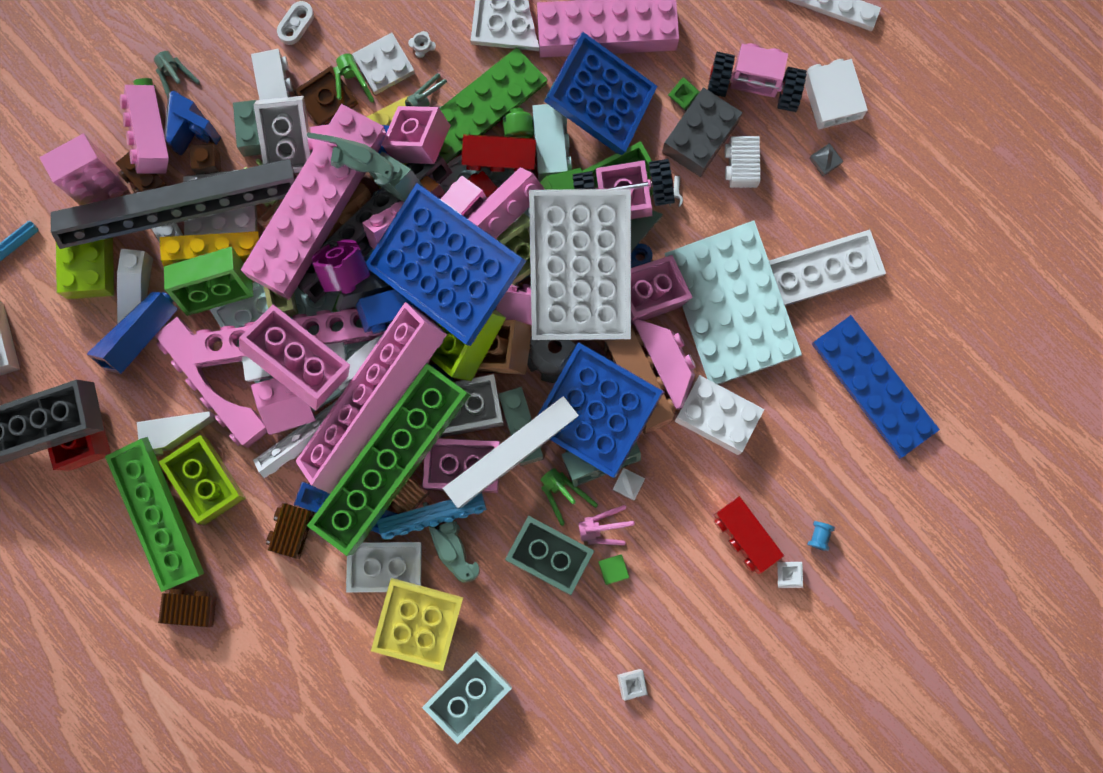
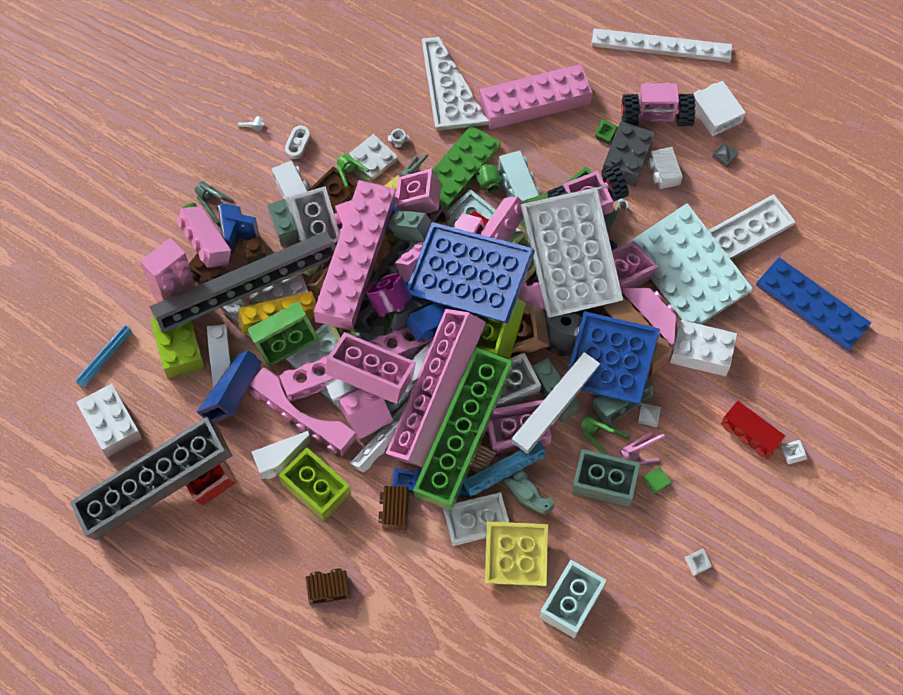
camera: 15 degrees left, 15 degrees down
(154, 514) = (284, 518): bright green plate -> none
(357, 157) = (383, 211): sand green animal -> none
(498, 152) = (481, 194): red brick -> none
(601, 94) = (547, 140): blue plate -> none
(821, 536) = (808, 418): dark azure bush -> none

